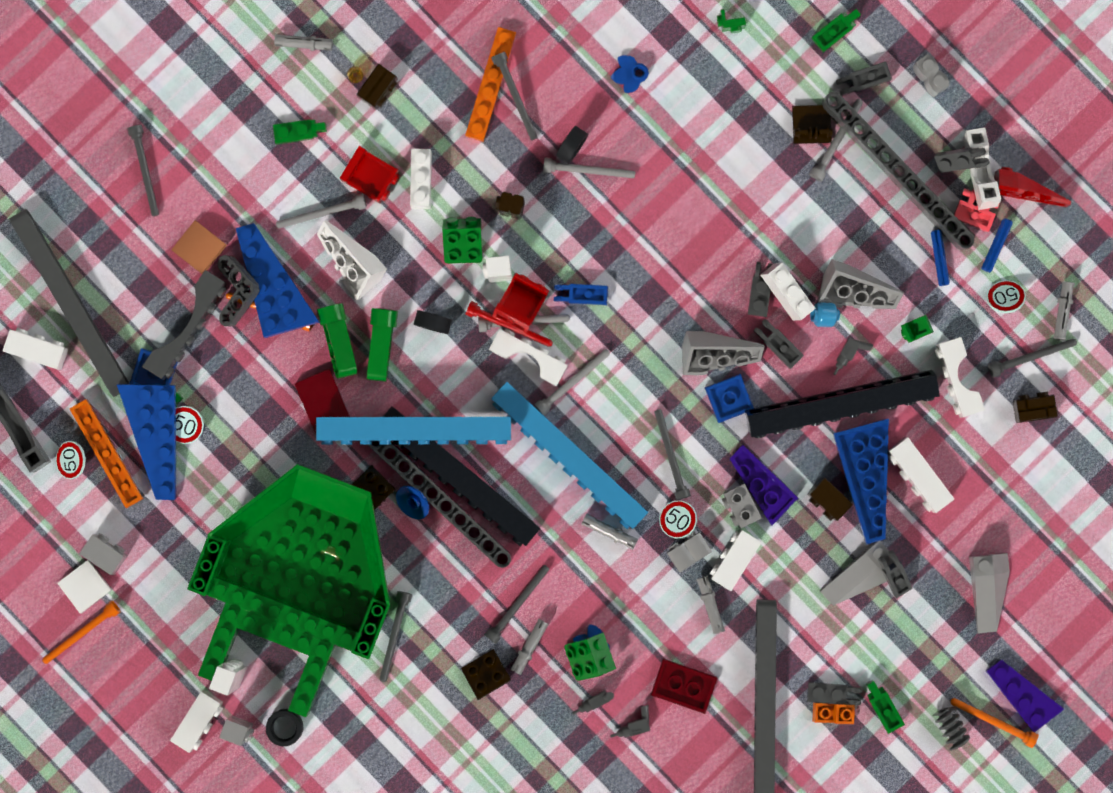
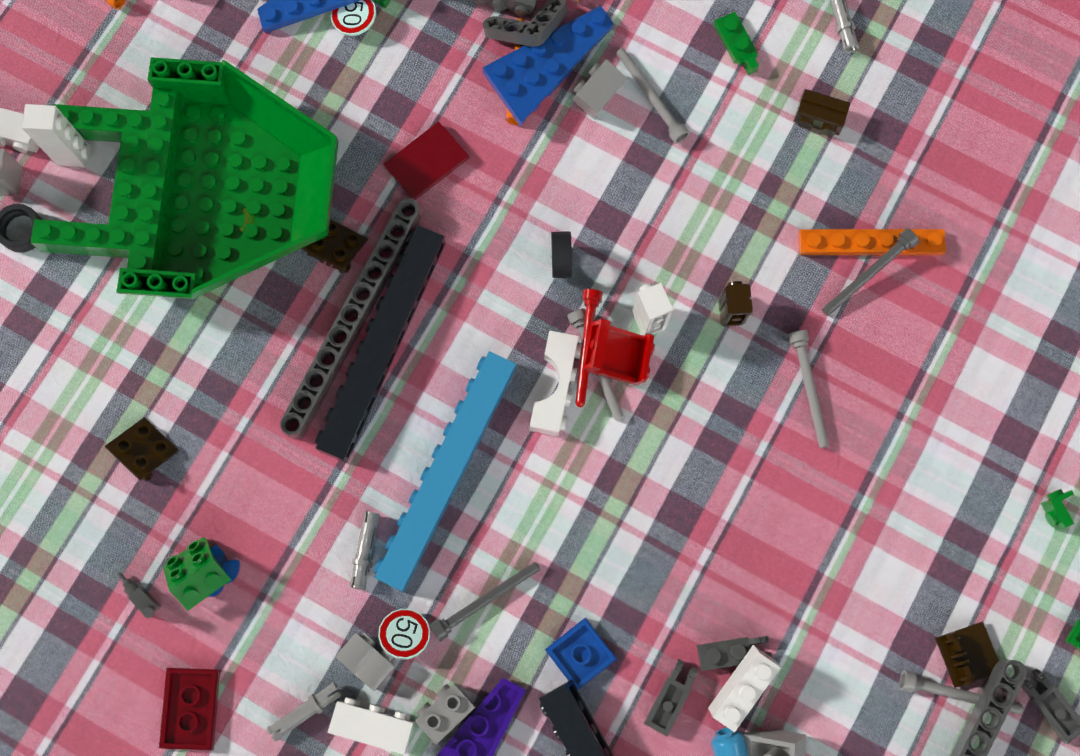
camera: 65 degrees right, 10 degrees down
(306, 252) = (599, 88): none -> light grey brick
(338, 340) = (529, 140): green beam -> none
(356, 79) = (823, 80): clear yellow hinge -> none
(357, 264) = (605, 149): white wedge -> none
(370, 175) = (714, 134): red panel -> none
(381, 339) = (516, 204): green beam -> none
(403, 599) = (212, 321): dark grey piece -> none
(412, 429) = (423, 269): dark azure brick -> none
(412, 502) = (333, 296): blue dish -> none
(421, 178) = (730, 192): white brick -> none
(462, 240) = (673, 261): green bracket -> none
(494, 634) = (195, 444): dark grey piece -> none
(529, 647) = (180, 490): light grey pin -> none
(544, 405) = (501, 421): light grey piece -> none
(572, 144) = (835, 356): black tyre -> none
(583, 294) = (654, 428): blue hinge -> none
(626, 74) = (946, 400): blue plate -> none
(637, 726) = (121, 661): dark grey piece -> none
(711, 351) = (634, 612): light grey wedge -> none

